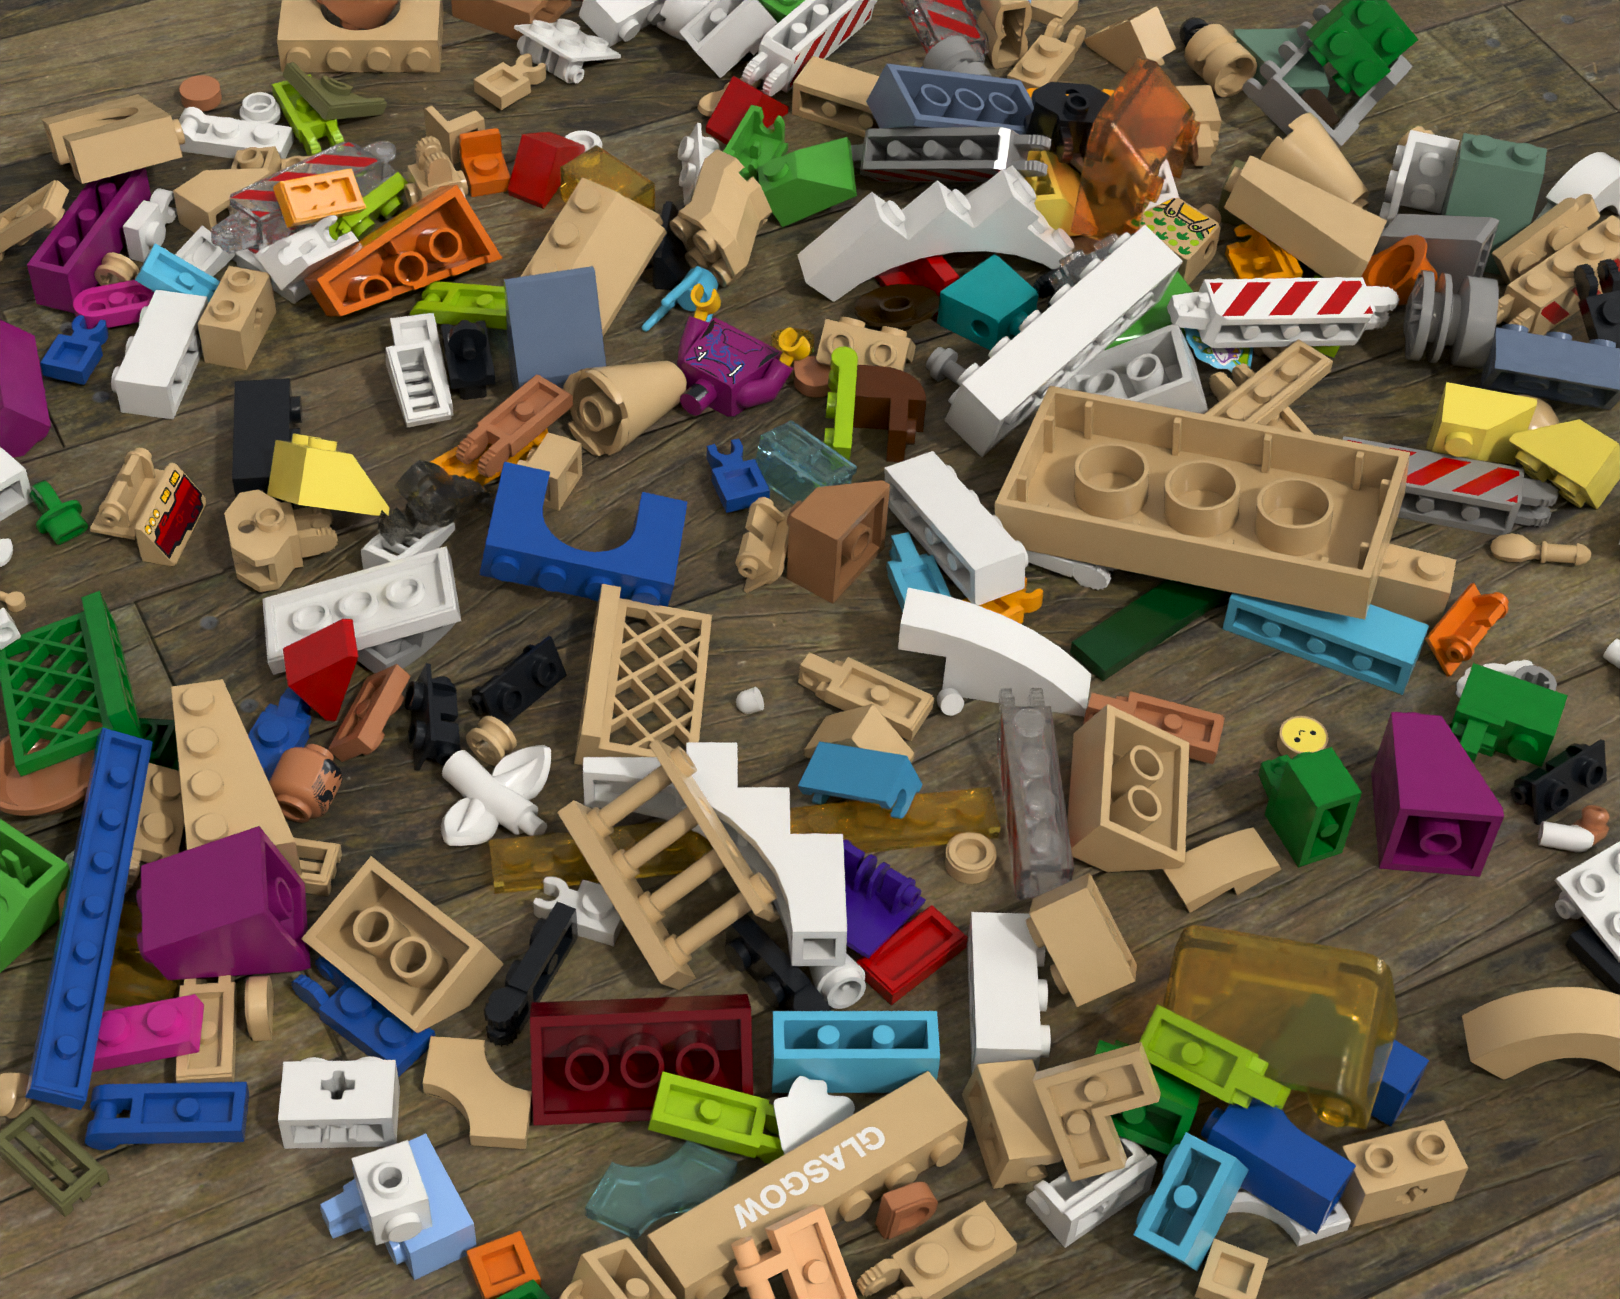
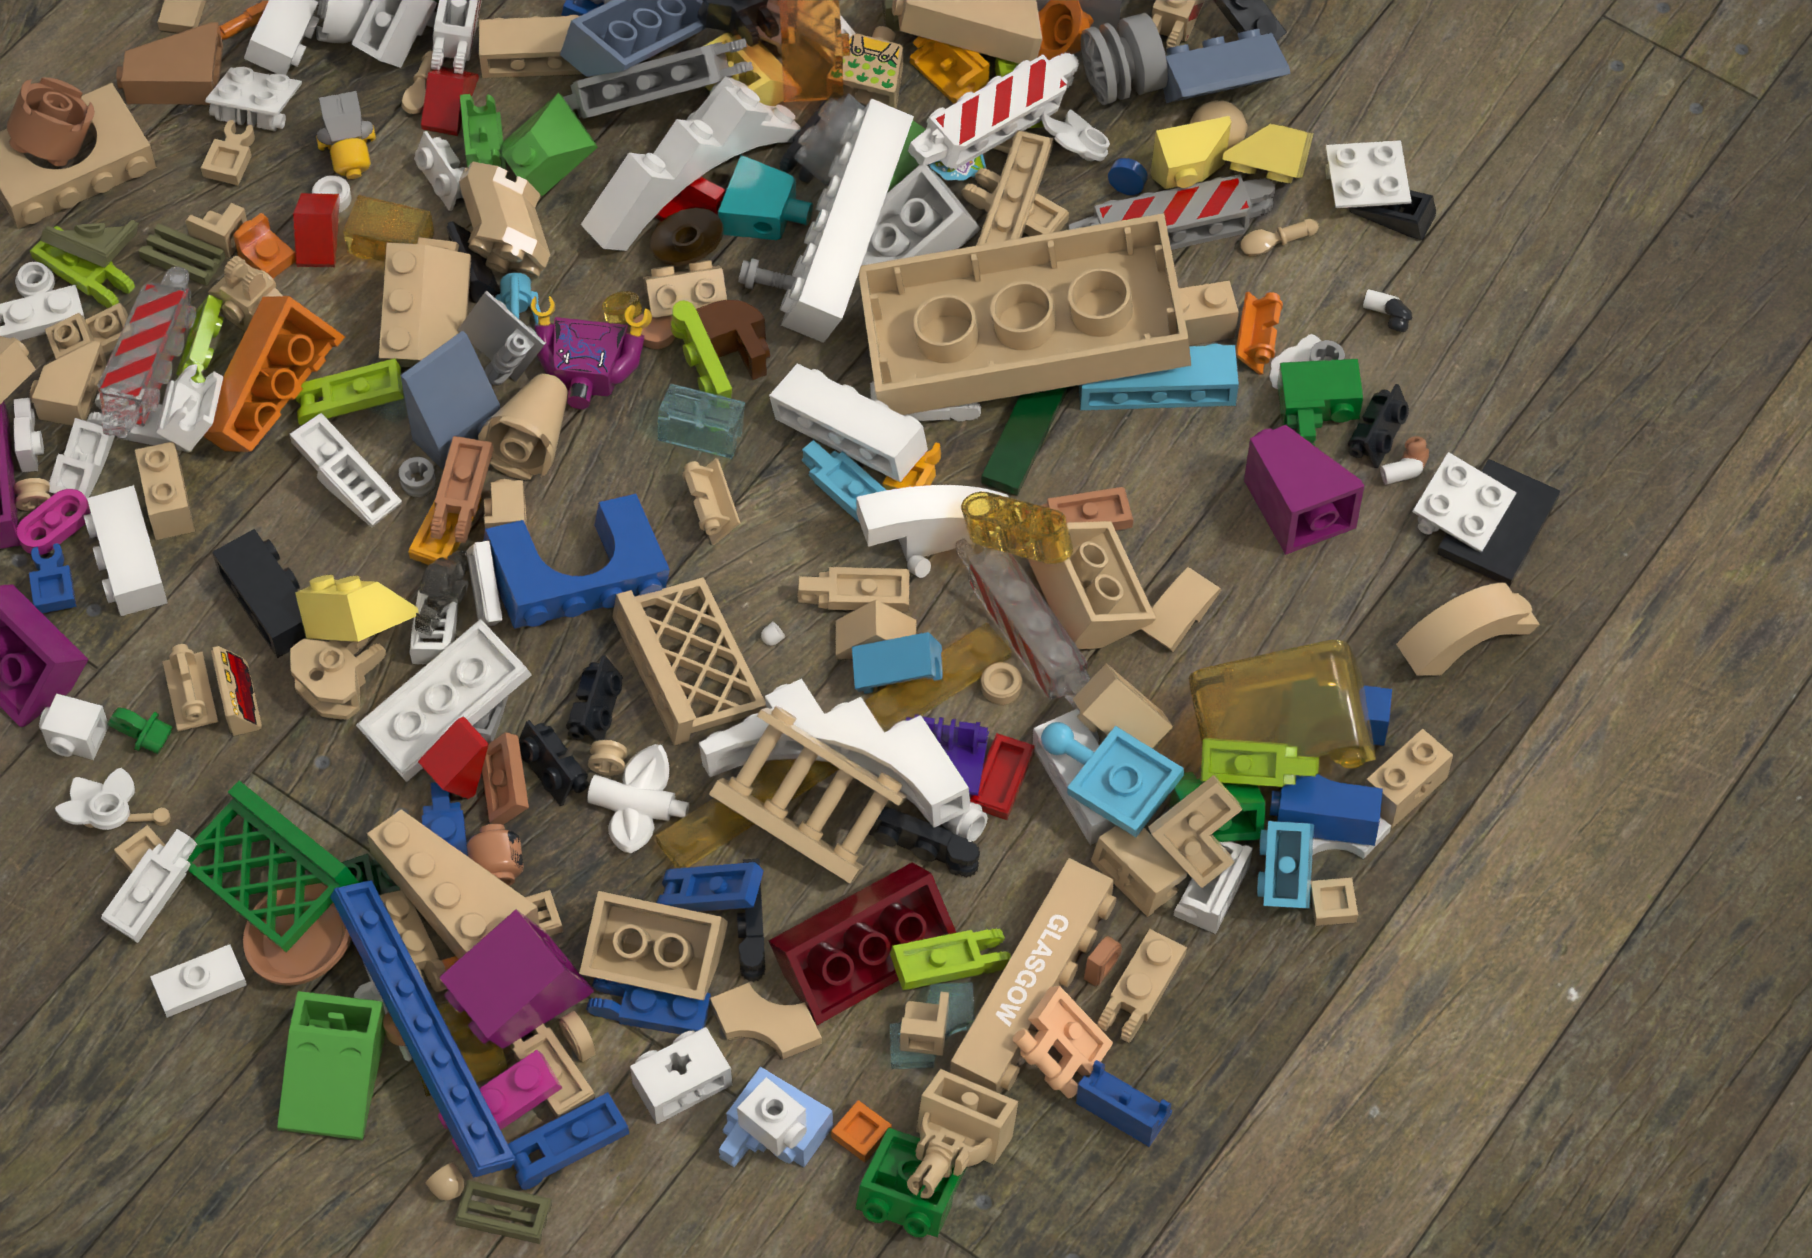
camera: 25 degrees left, 10 degrees up
(171, 273) = (91, 478): medium azure plate -> none
(319, 196) = (172, 354): light orange plate -> none
(406, 129) = (185, 249): none -> olive tile
(468, 358) = (377, 440): black hips -> none
(476, 520) = (484, 583): none -> white tile
(484, 397) = (415, 465): none -> light grey bush
(505, 915) = (712, 887): none -> blue plate
(594, 910) = (755, 845): white plate -> none
(625, 99) = (345, 134): none -> piece
(646, 310) = (501, 338): none -> light grey hinge
(646, 1182) = (925, 1026): none -> tan panel
(736, 480) = (652, 453): blue plate -> none
(808, 1112) = (1005, 926): white sticker -> none
(836, 536) = (764, 472): medium nougat slope -> none
(853, 1049) = (1008, 868): medium azure brick -> none
(1034, 1008) = (1118, 780): none -> medium azure plate
(1069, 691) = (1017, 527): none -> clear yellow beam
(1301, 735) = (1185, 478): light yellow tile -> none
(1310, 803) = (1218, 530): green hinge -> none
(1365, 374) = (1078, 136): none -> white plate
(1398, 428) = (1127, 176): none -> blue tile

